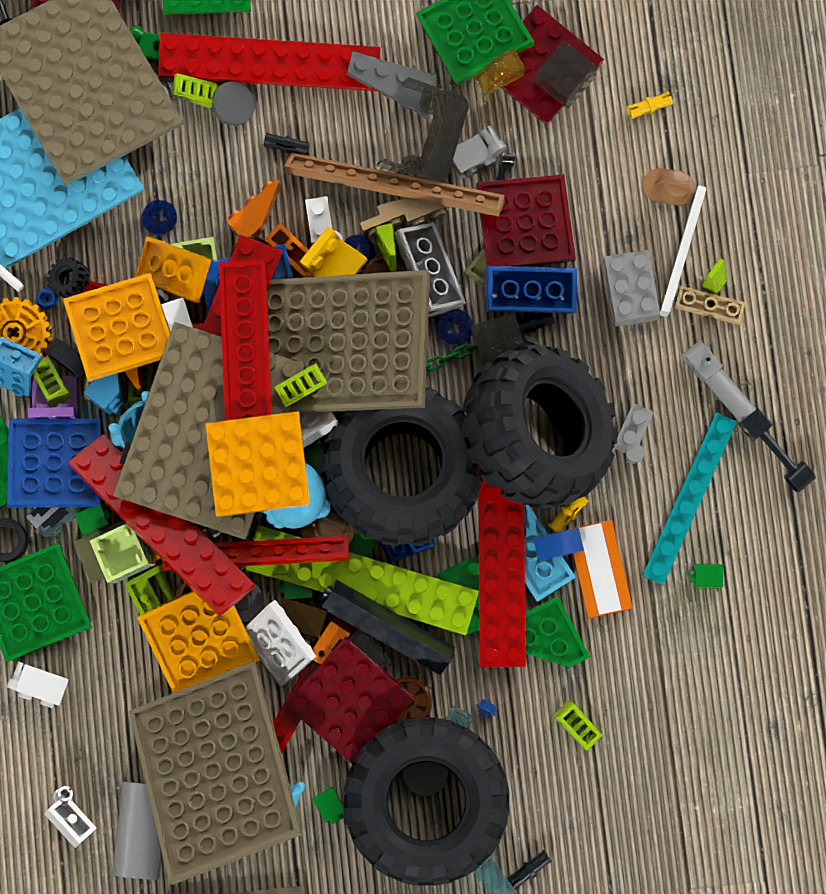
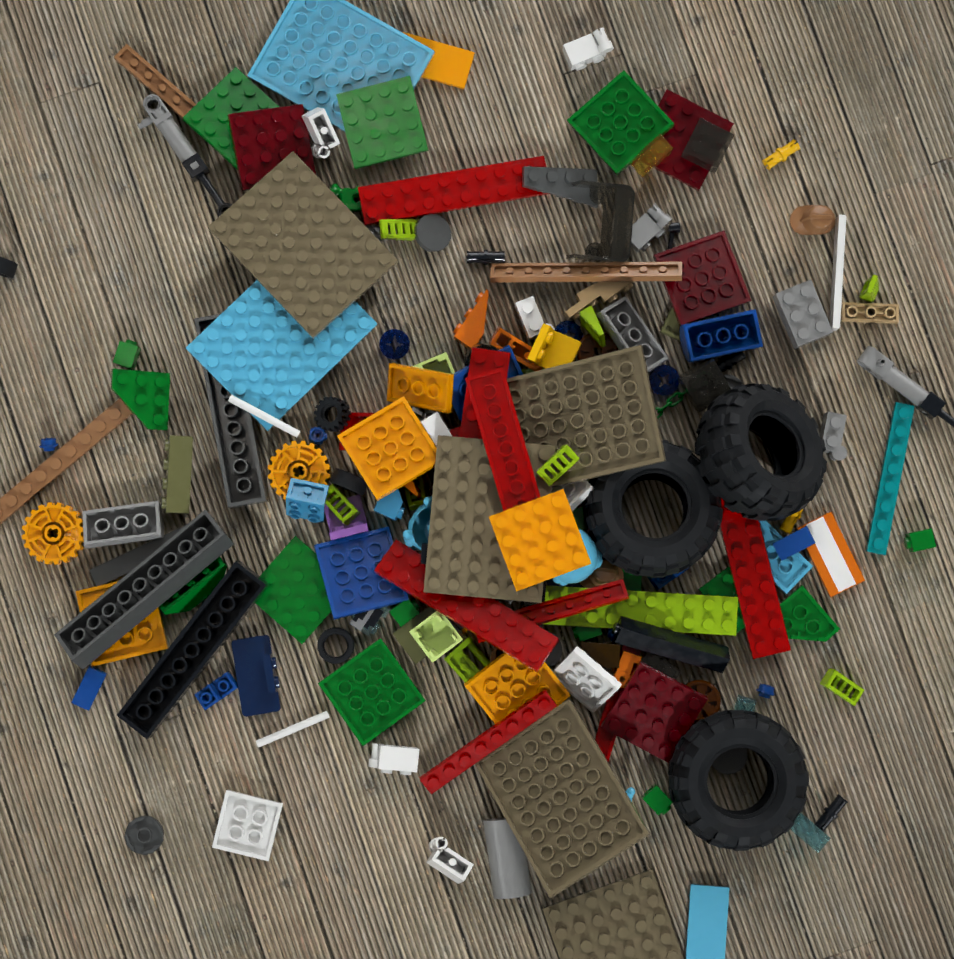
camera: 20 degrees left, 5 degrees up
(150, 690) = (488, 741): none -> red plate

